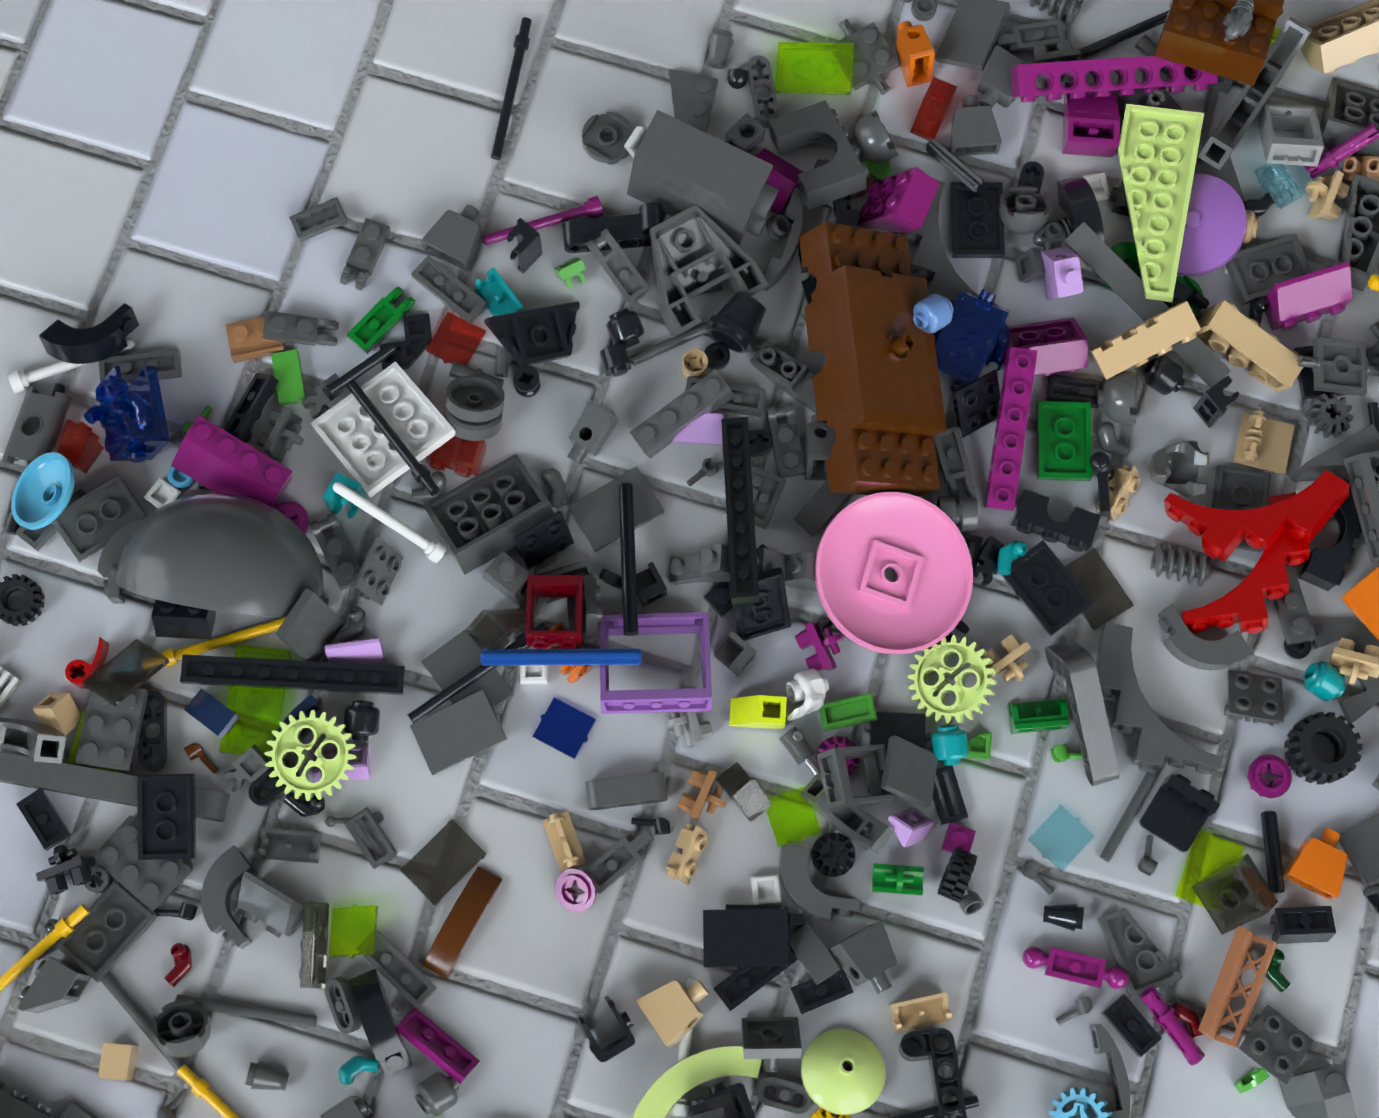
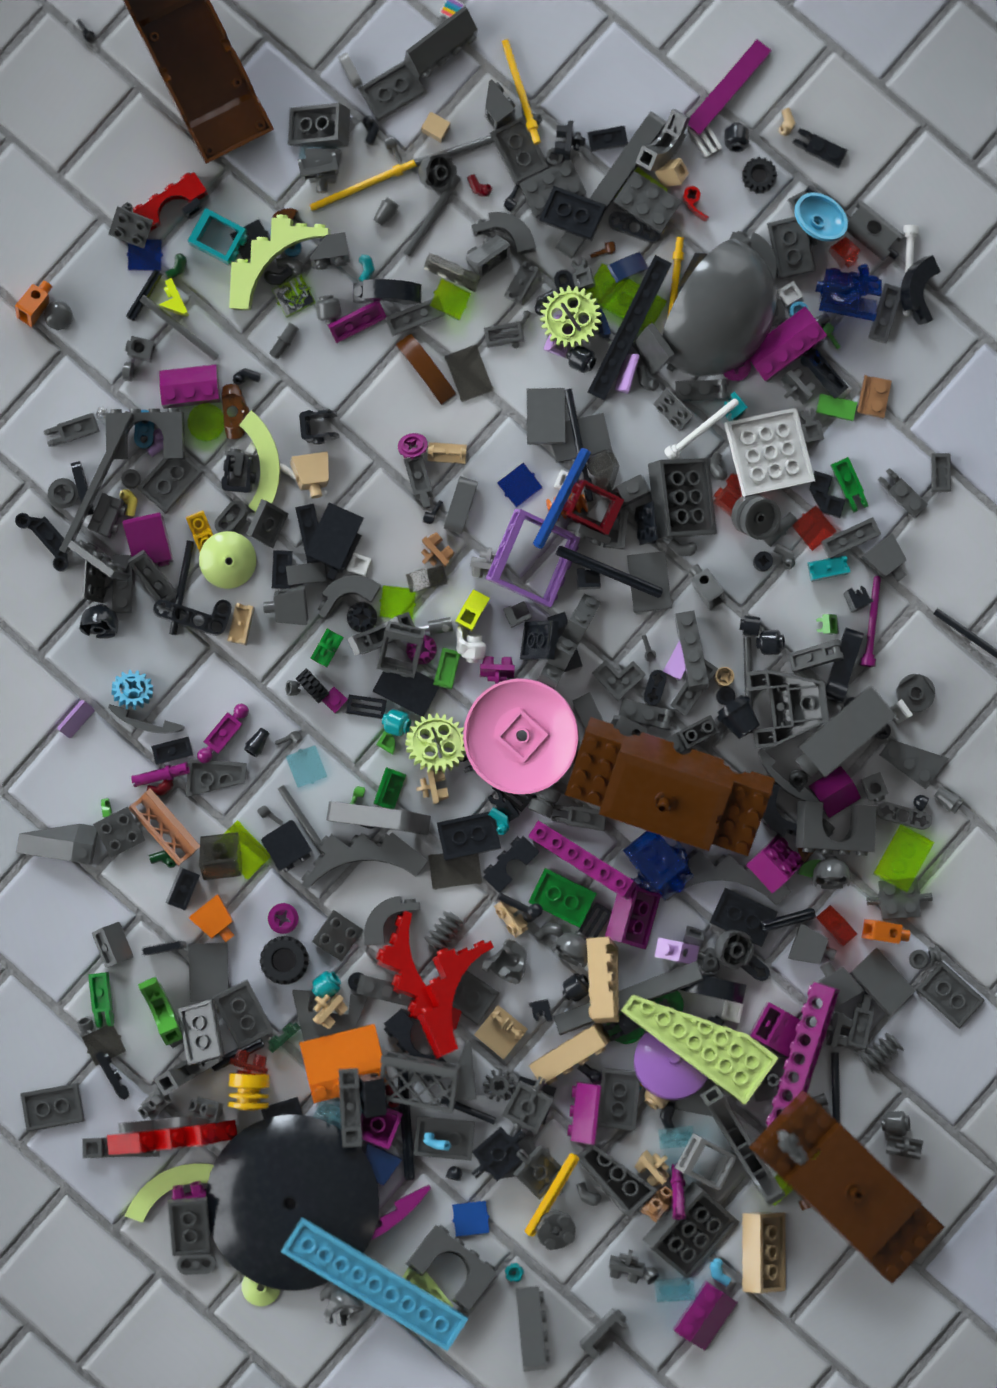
camera: 115 degrees right, 10 degrees up
(125, 672) = (678, 224): clear smoke piece -> none
(298, 329) = (866, 425): dark grey hinge -> none
(342, 1004) = (407, 273): dark grey plate -> none
(361, 369) = (818, 455): black bar -> none
(418, 471) = (723, 460): black bar -> none
(536, 333) = (791, 582): black wing -> none
(611, 578) = (603, 556): black tile -> none
(684, 865) = (409, 532): tan hinge -> none
(740, 511) = (605, 653): black plate -> none
(909, 771) = (389, 686): dark grey tile -> none
(910, 826) = (356, 671): lavender slope -> none
(932, 313) = (679, 839): medium blue head -> none
(976, 402) = (612, 848): black hinge -> none
(1083, 1006) = (197, 727): dark grey hand -> none
(1272, 851) = (235, 895): black axle -> none

